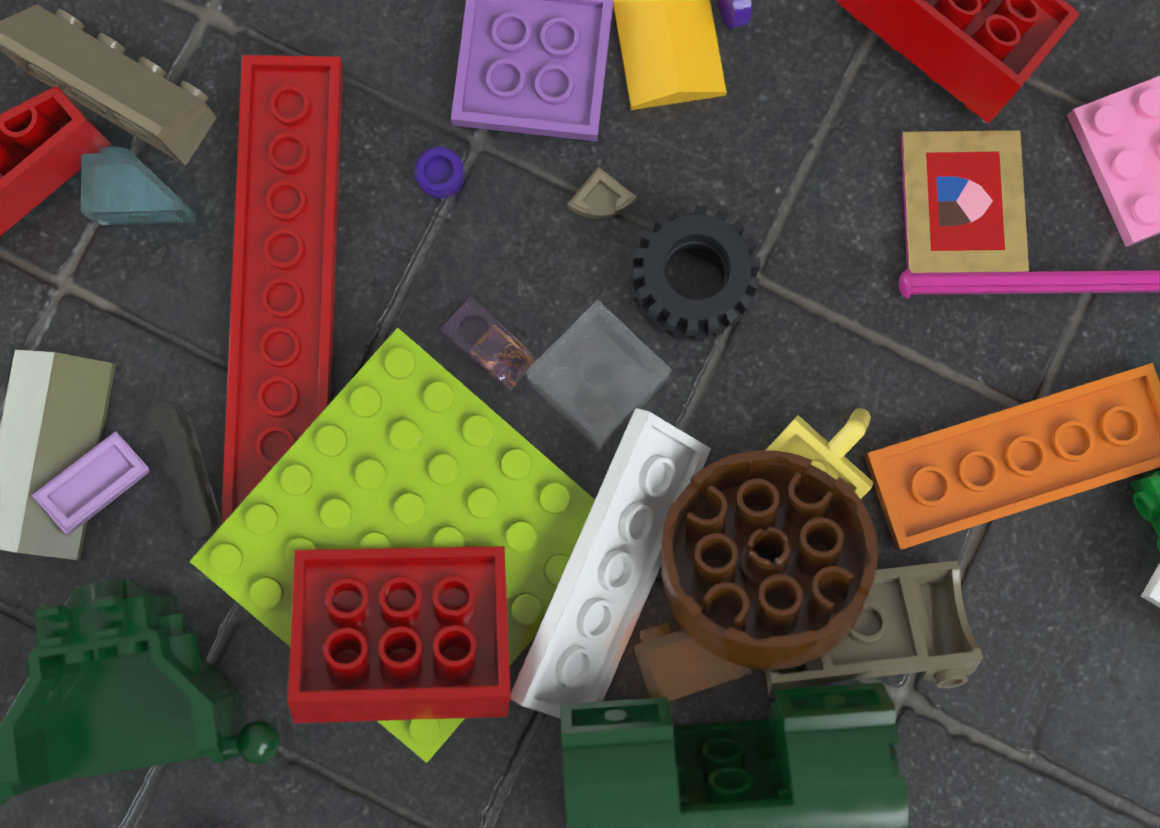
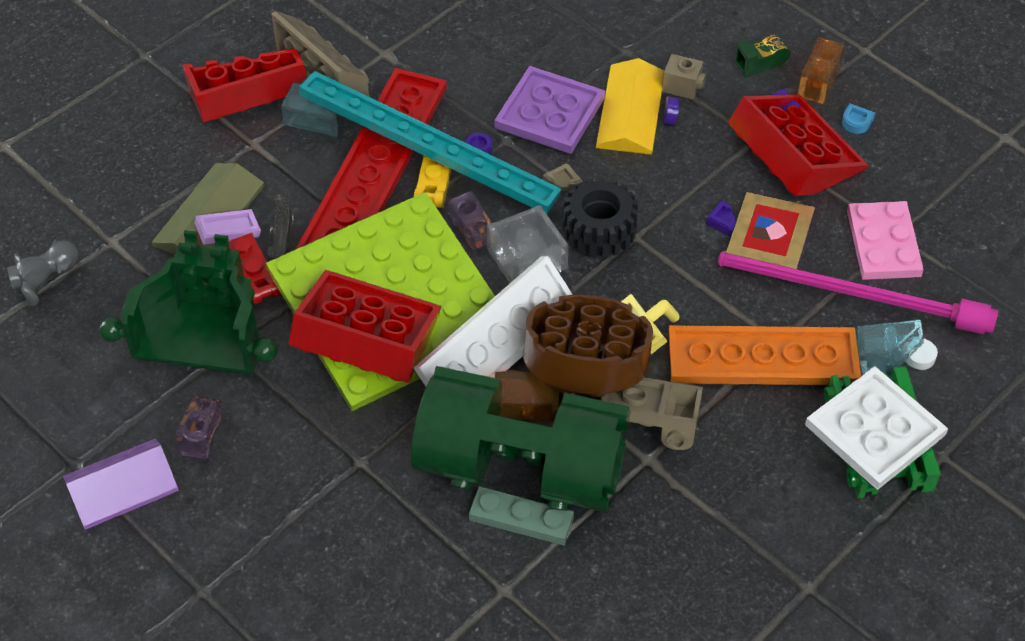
camera: 20 degrees right, 30 degrees down
(160, 543) = (255, 267): none -> red plate
(355, 211) = (430, 142): none -> teal plate
(389, 257) = (434, 181): none -> yellow plate
(881, 198) = (722, 218): none -> dark purple tile

